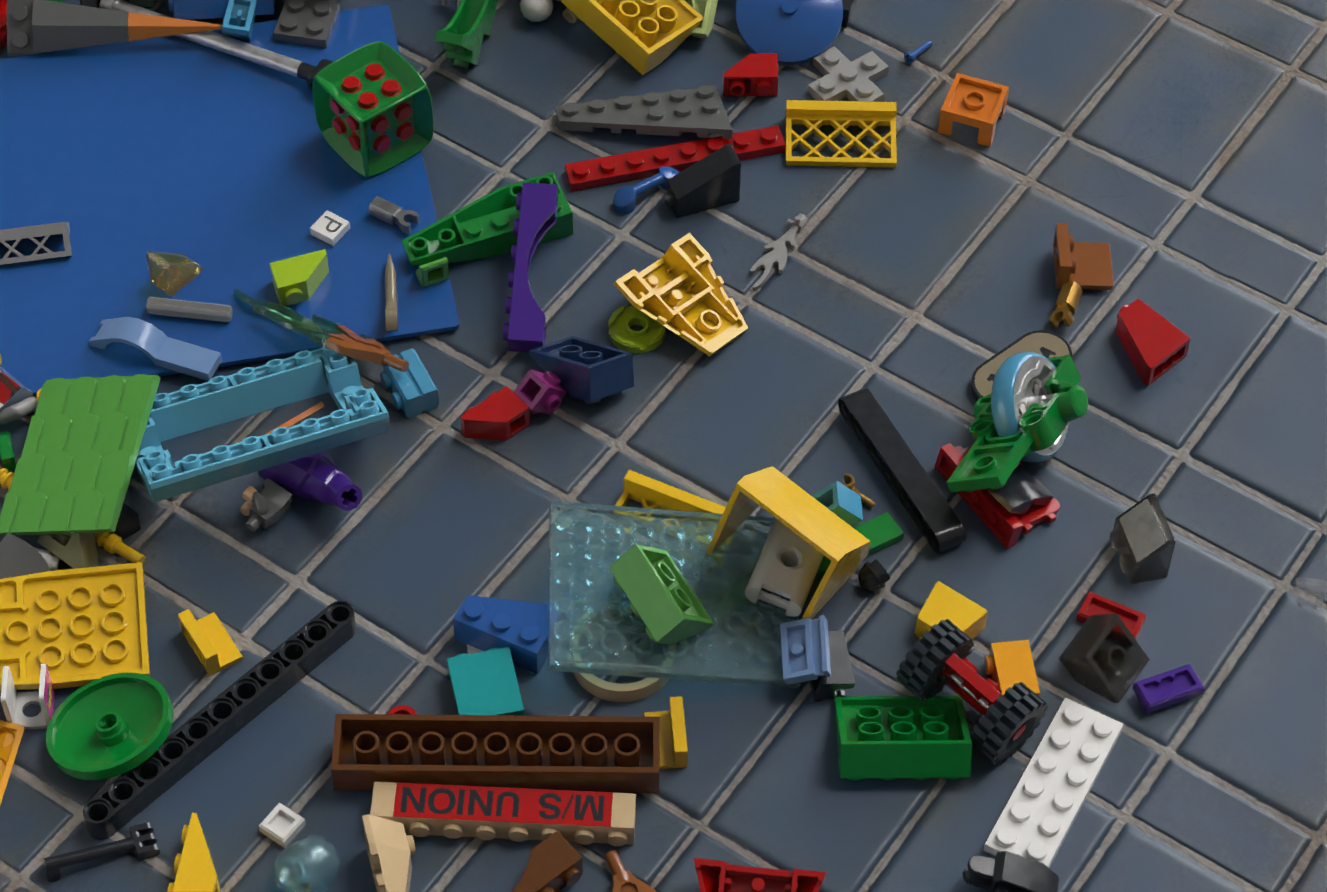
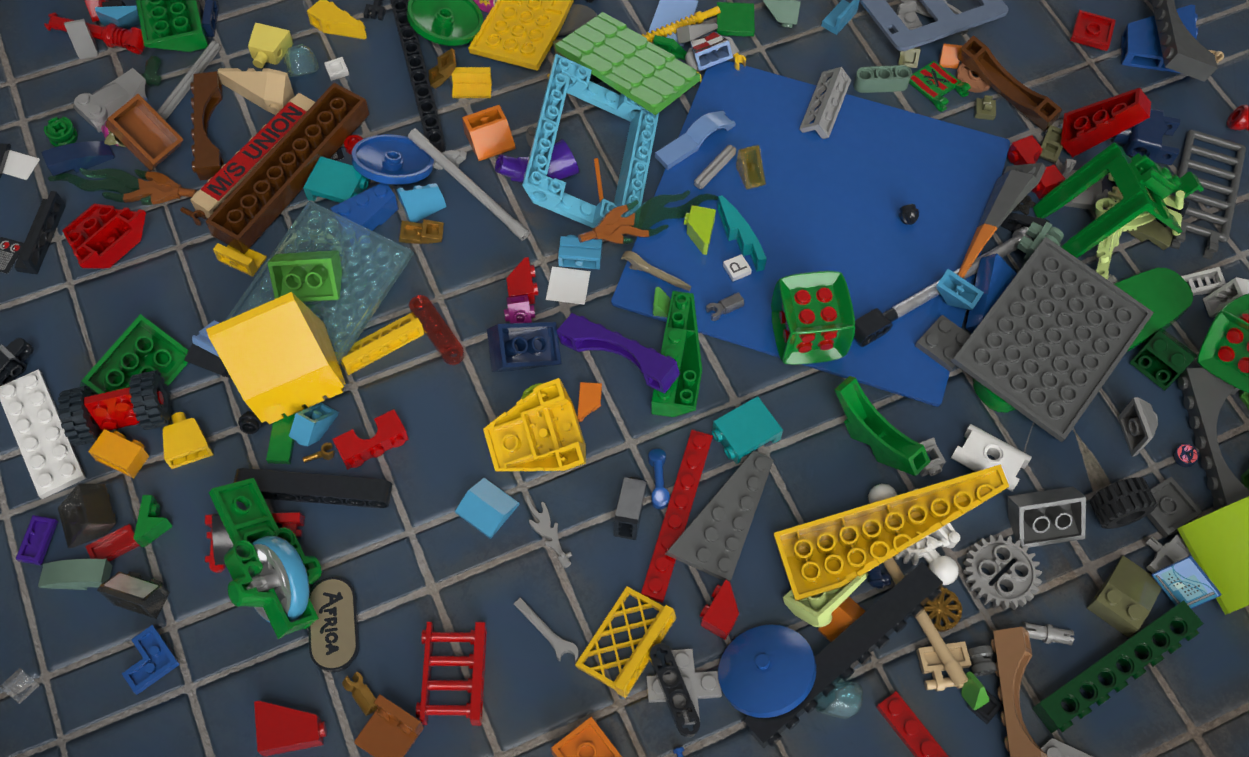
camera: 120 degrees right, 10 degrees up
(146, 105) = (909, 214): none -> black plate
(211, 666) = (443, 70): none -> pearl gold slope
(280, 237) = (738, 229): none -> teal slope
(287, 567) = (488, 132): none -> orange slope
(356, 593) = (455, 157): none -> light grey piece
(362, 613) = (513, 225): none -> light grey piece
(409, 637) = (391, 159): none -> blue dish
(441, 577) = (421, 201): none -> dark azure slope
(460, 384) = (568, 285): none -> white sticker
(489, 564) = (419, 233): none -> pearl gold slope
(539, 135) = (746, 429): none -> teal panel
(596, 289) = (588, 399): none -> orange tile
(623, 456) = (437, 330): none -> clear red plate
(644, 830) = (196, 214): none -> reddish brown hand
(784, 435) = (356, 450): none -> red arch
(794, 312) = (486, 507): none -> dark azure slope
(858, 68) = (677, 688): none -> black beam
(888, 184) = (559, 645): none -> light grey piece
(978, 221) = (473, 685): none -> red fence
(1062, 590) = (149, 524): none -> green slope
(1171, 619) = (75, 574): none -> sand green slope
(1190, 488) = (156, 660): none -> blue plate

